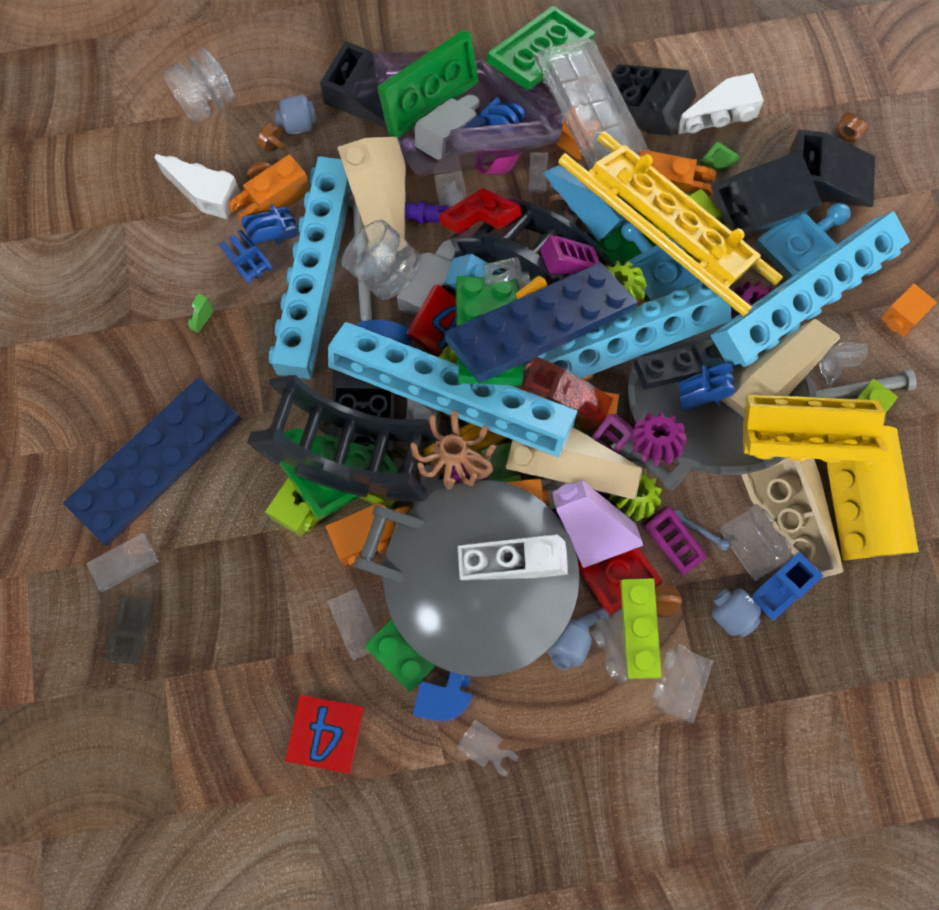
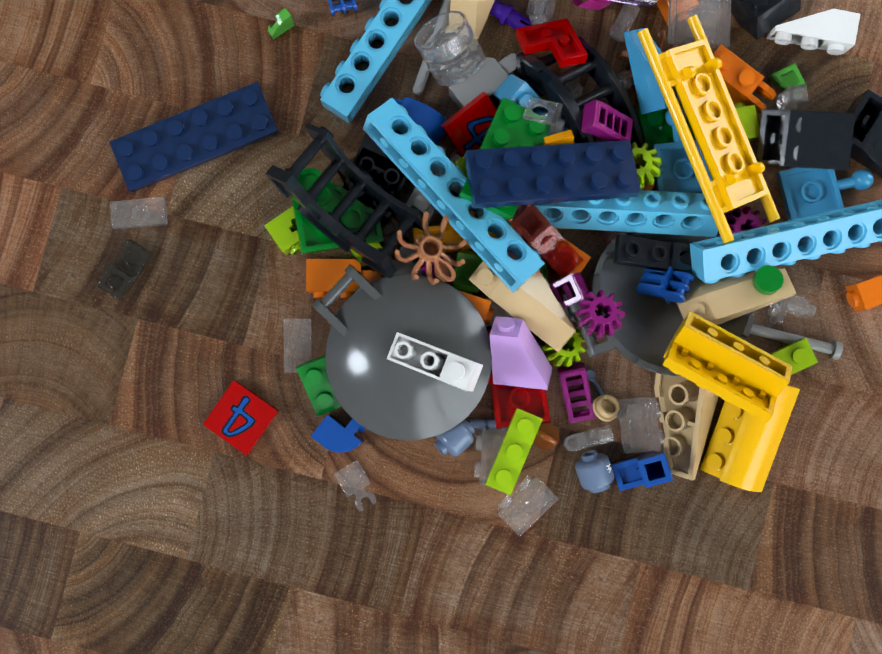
camera: 25 degrees right, 15 degrees up
(711, 581) = (589, 438): none -> clear bar
(713, 539) = (606, 407): none -> tan plate
(733, 165) = (793, 97): none -> clear piece
(805, 334) = (768, 280): none -> green tile

